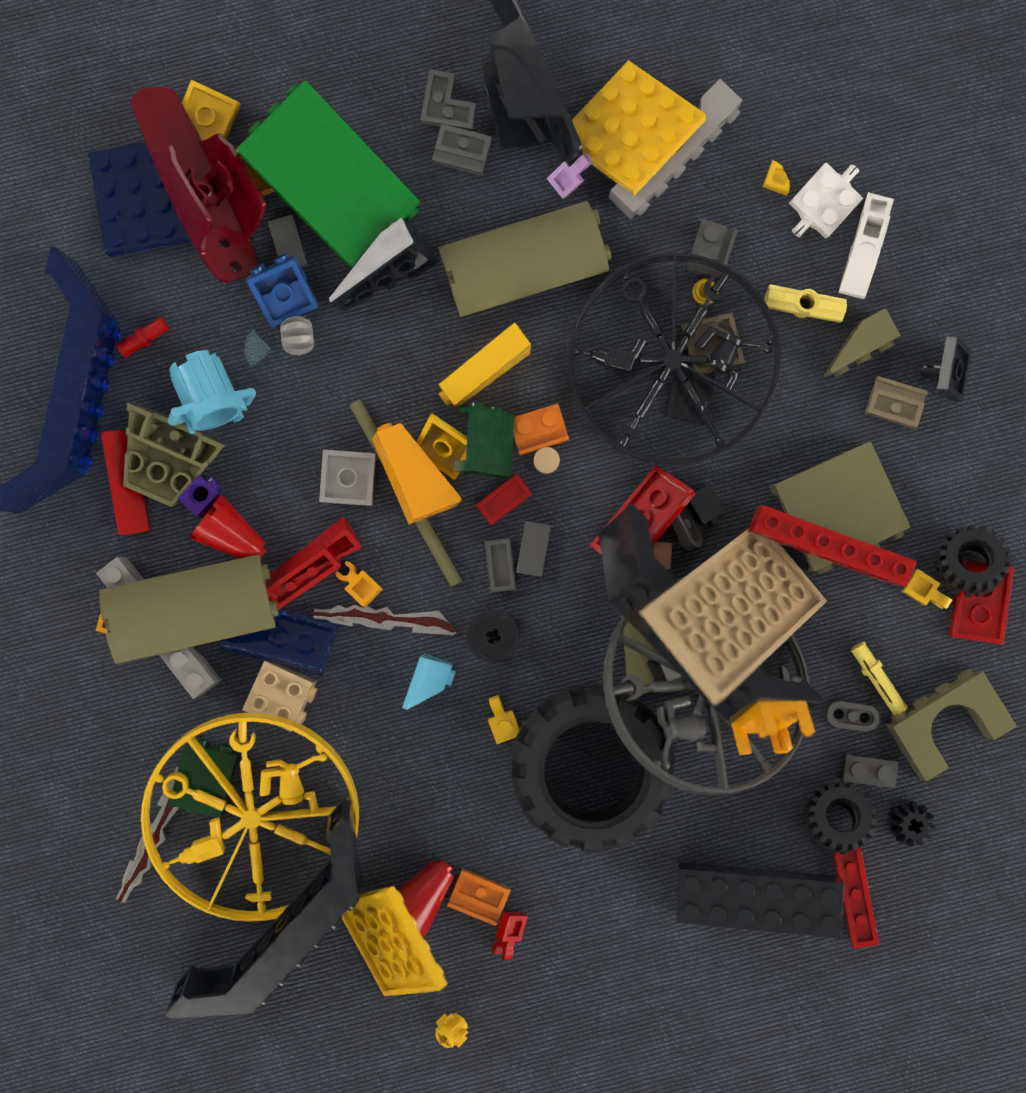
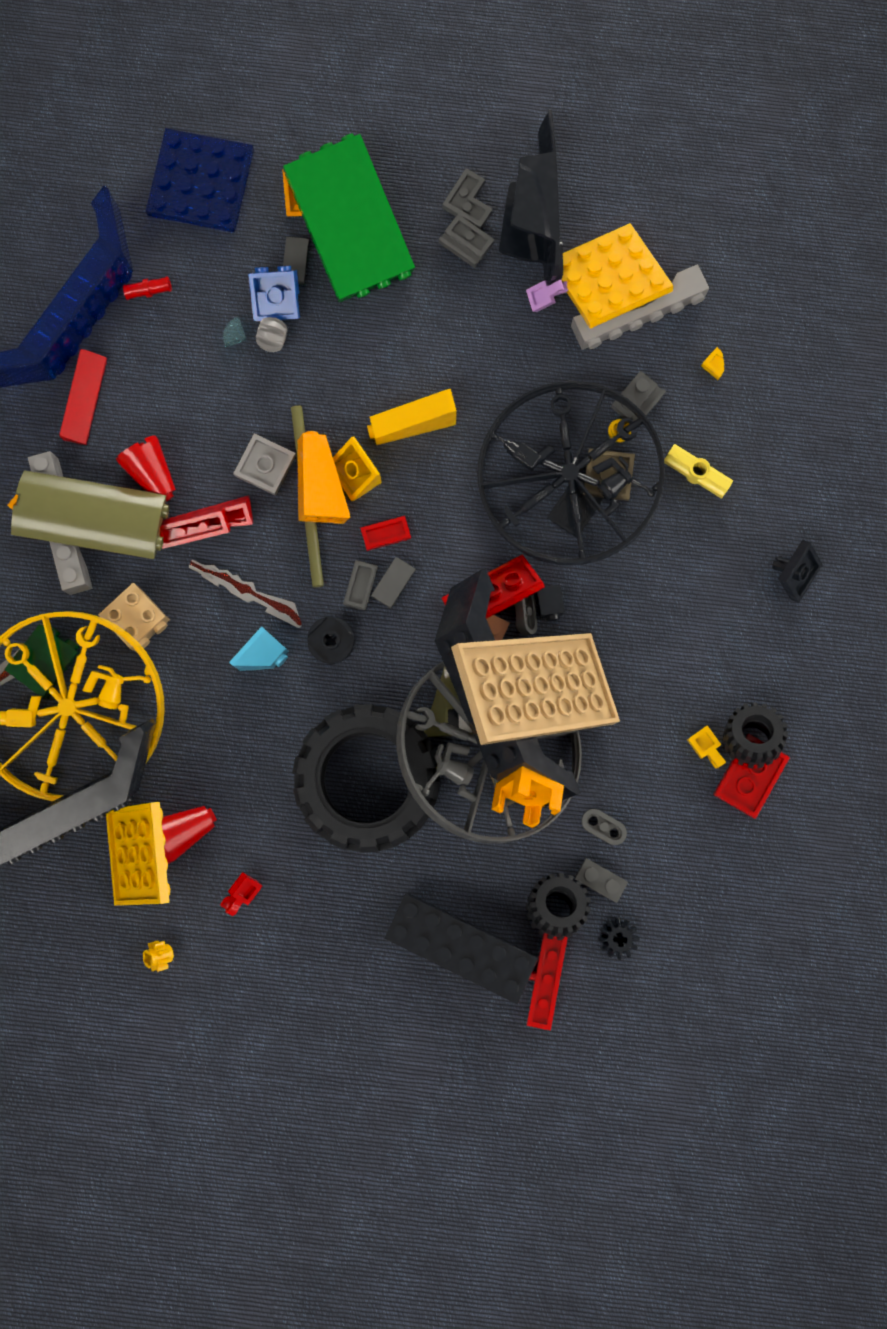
camera: 20 degrees right, 5 degrees down
(164, 456) = (123, 386): olive wedge -> none
(190, 495) = (131, 427): dark purple brick -> none
(204, 182) = (247, 186): dark red piece -> none
(206, 393) = (178, 350): medium azure container -> none
(210, 110) = (272, 136): yellow plate -> none
(293, 642) = (160, 577): clear blue plate -> none
(360, 586) = (238, 555): light orange plate -> none
(391, 257) = (370, 303): black wedge -> none
(479, 897) = (228, 853): orange plate -> none
(487, 441) = (390, 478): dark green panel -> none
(502, 723) = (309, 715): yellow plate -> none
(525, 258) = (482, 345): olive cylinder -> none
(539, 429) = (437, 487): orange plate -> none
(546, 460) = (433, 515): tan tile -> none
(825, 200) = (748, 396): white plate -> none
(832, 546) = (639, 673): red brick -> none
(846, 497) = (662, 649): olive panel -> none
(866, 246) = (766, 444): white slope -> none
(867, 336) = (741, 518): olive slope -> none
(872, 669) = (639, 805): light yellow pin -> none
(896, 402) = (742, 581): dark tan plate -> none
(913, 727) = (712, 847): olive arch -> none

